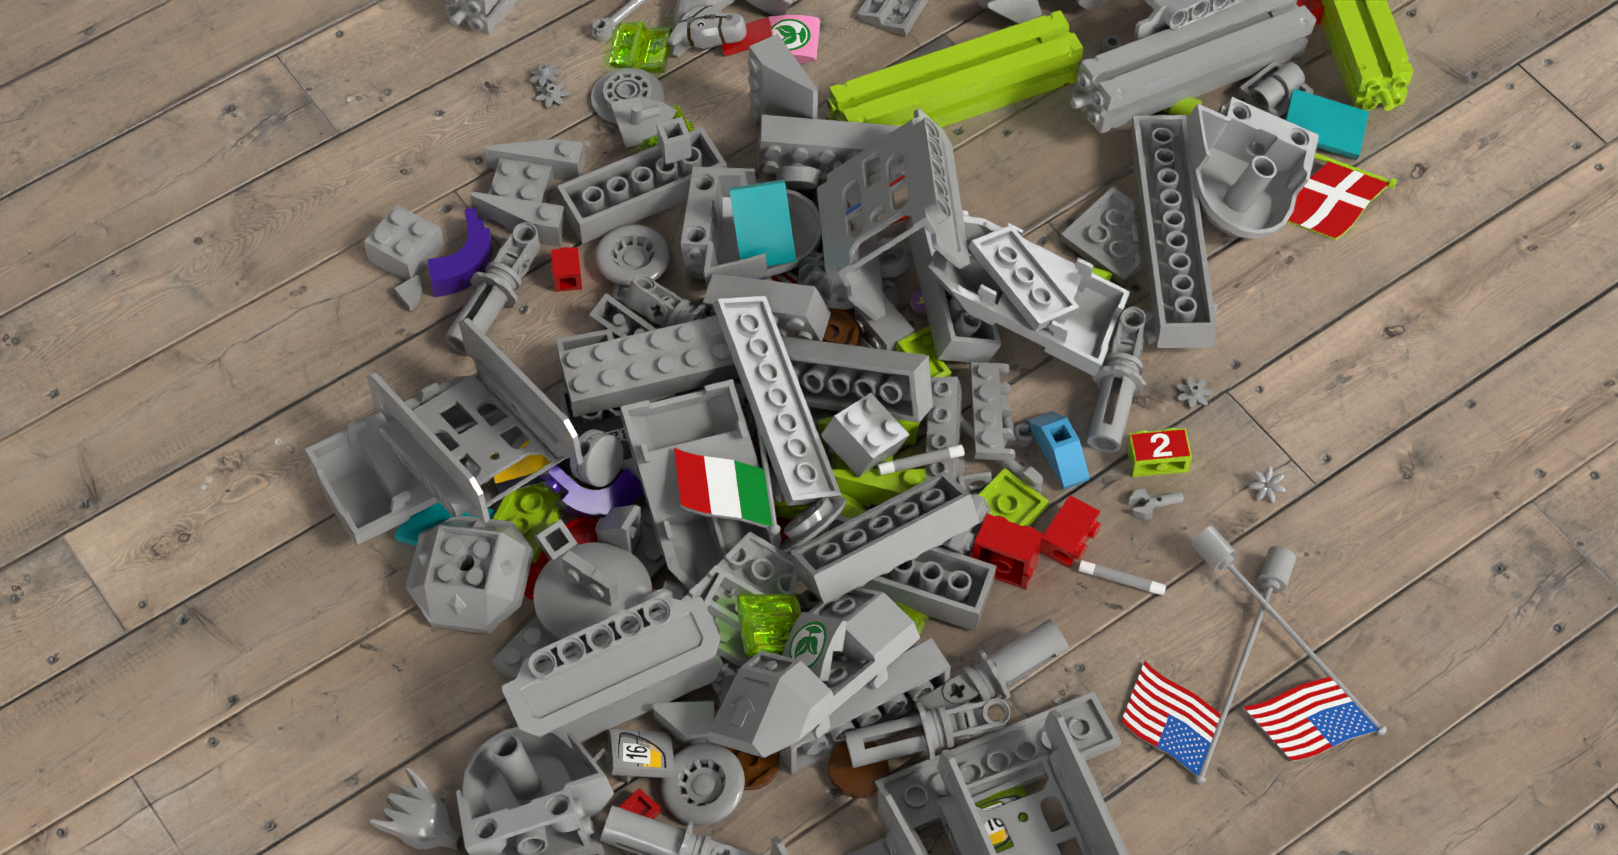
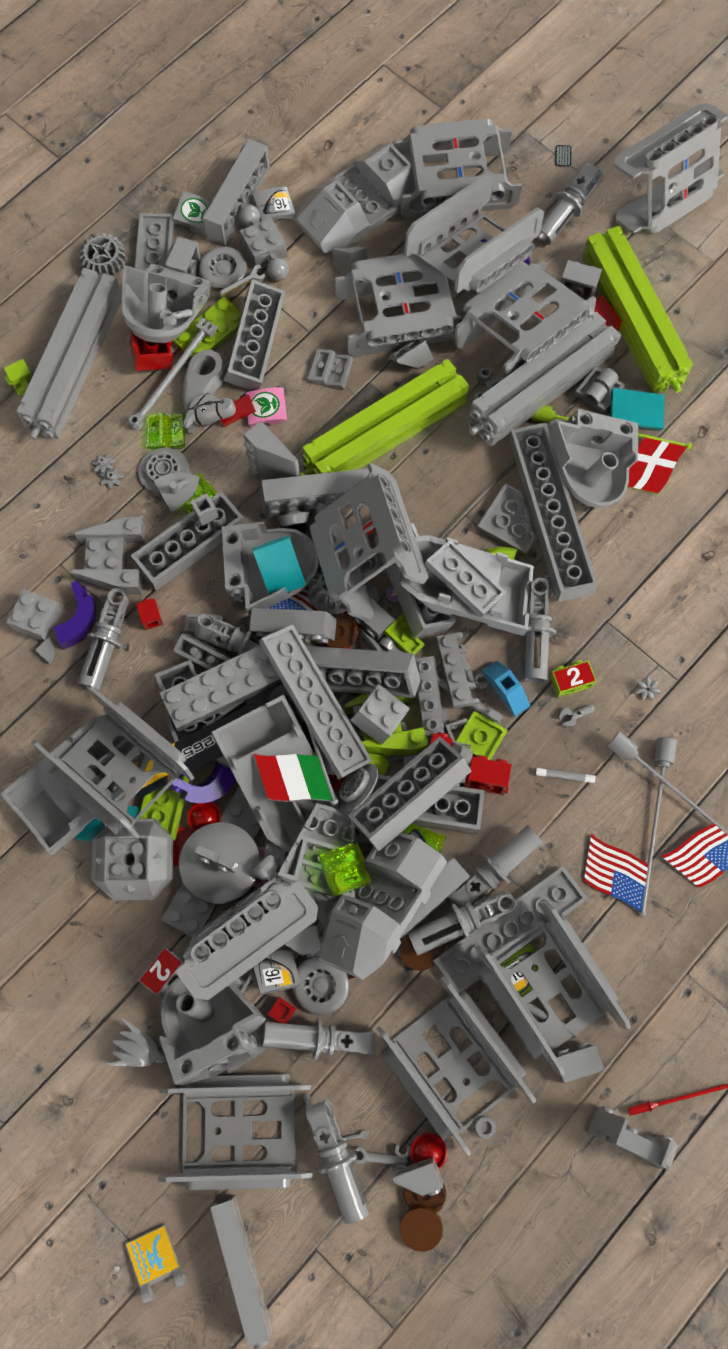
camera: 10 degrees left, 15 degrees up
(477, 724) = (161, 972): none -> red brick
(555, 539) = (185, 828): light grey brick -> none
(601, 458) = (202, 764): light grey head -> none
(621, 527) = (227, 811): light grey slope -> none
(634, 256) = (193, 596): light grey wheel -> none
(814, 640) = (377, 884): slope -> none
(920, 460) = (420, 723): light grey bar -> none
(1070, 531) = (525, 749): red brick -> none
(1194, 392) = (586, 630): light grey plant -> none

